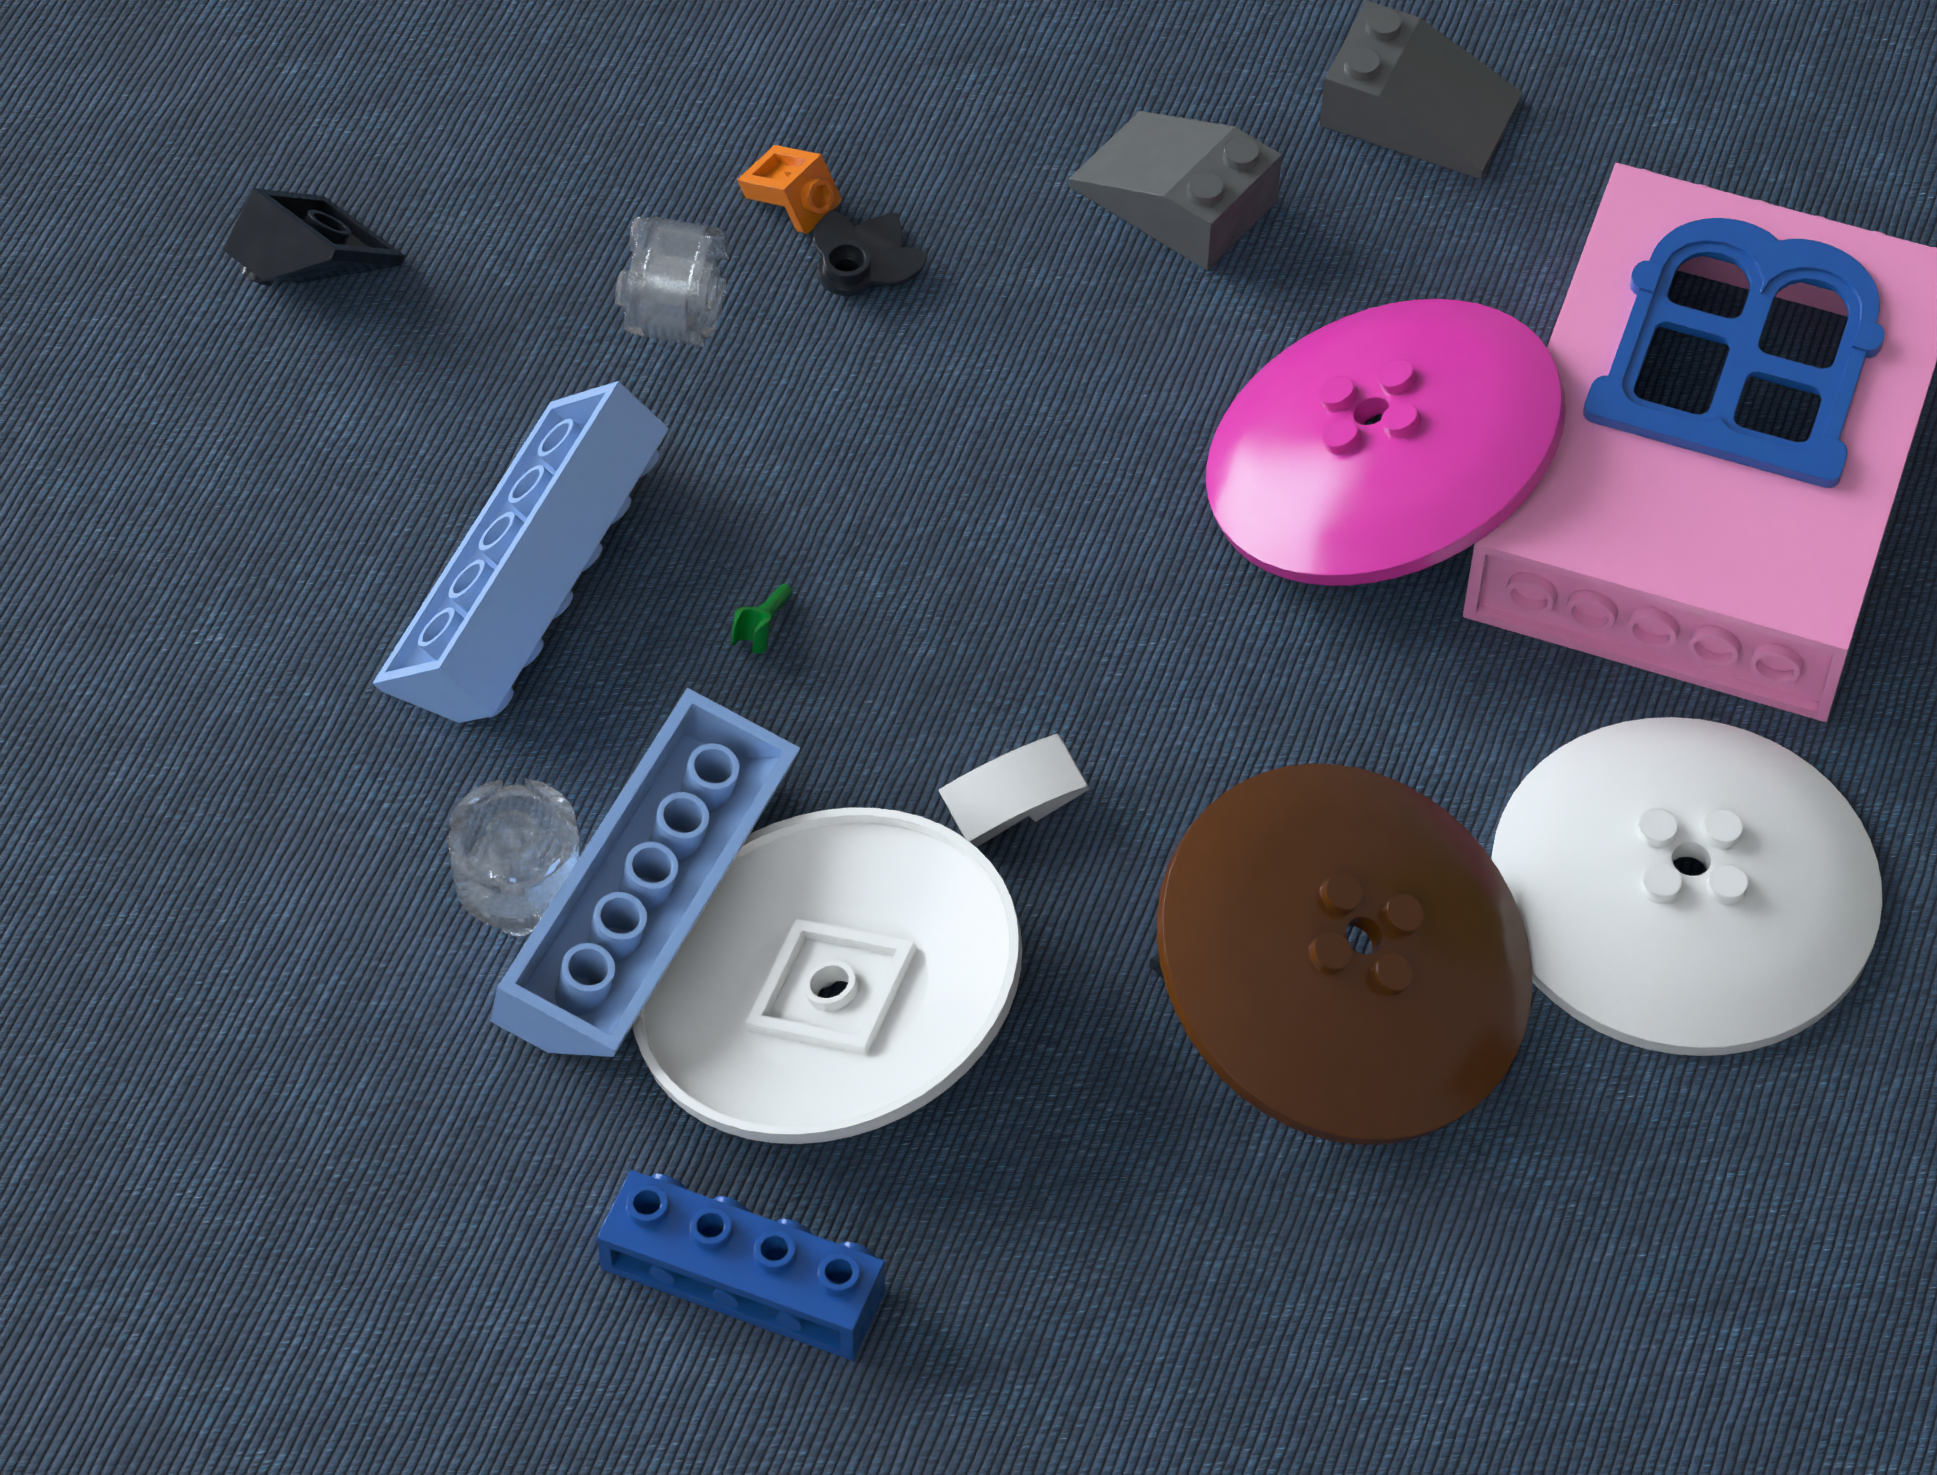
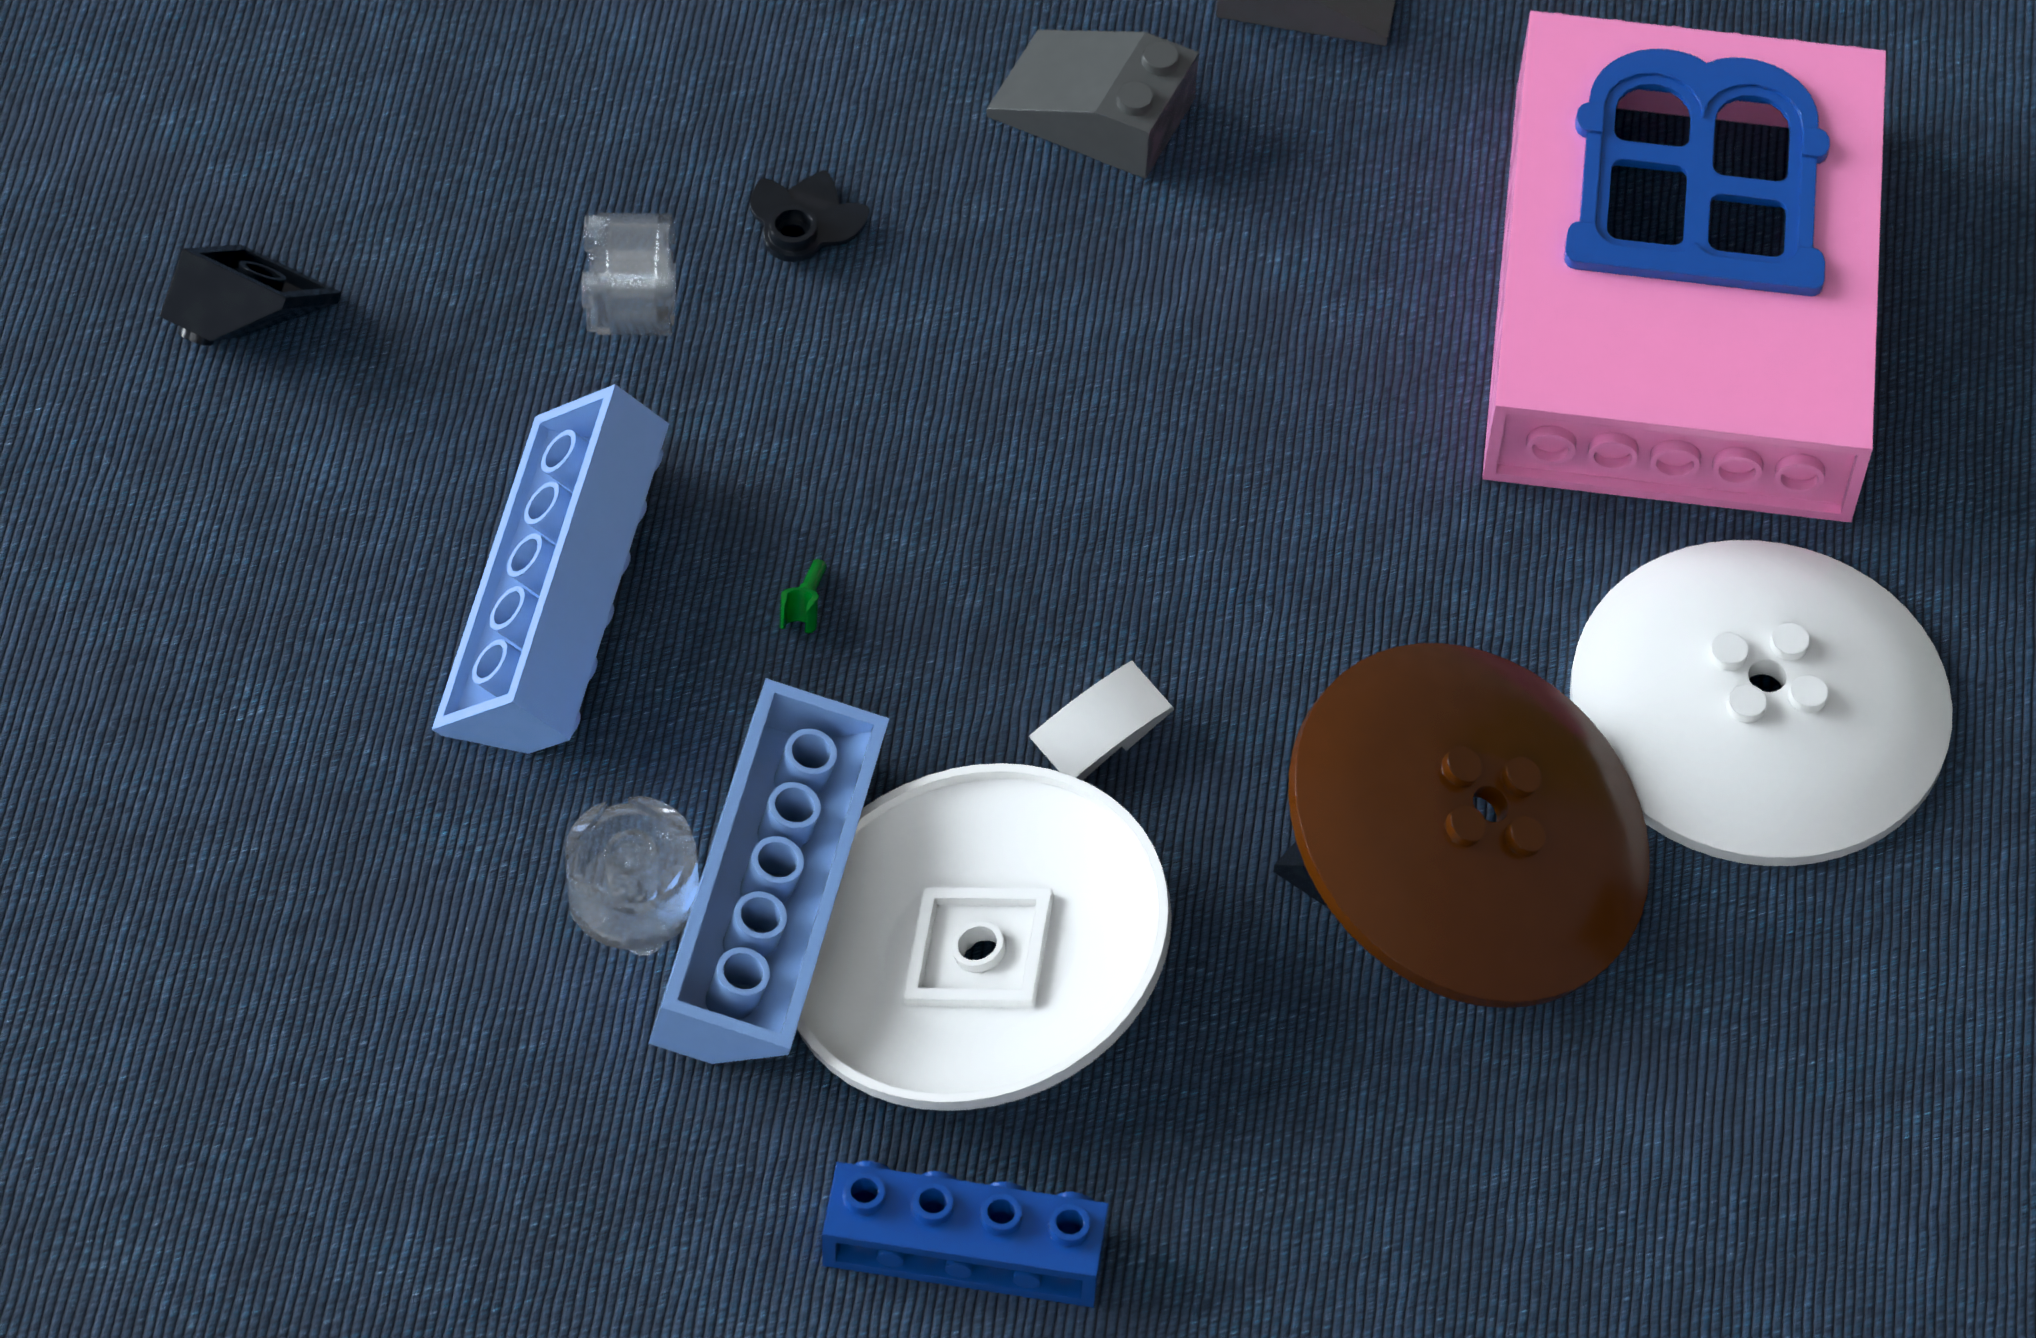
camera: 15 degrees left, 0 degrees up
(795, 181) = (717, 154): orange bracket -> none
(1458, 447) = (1368, 386): dark pink dish -> none

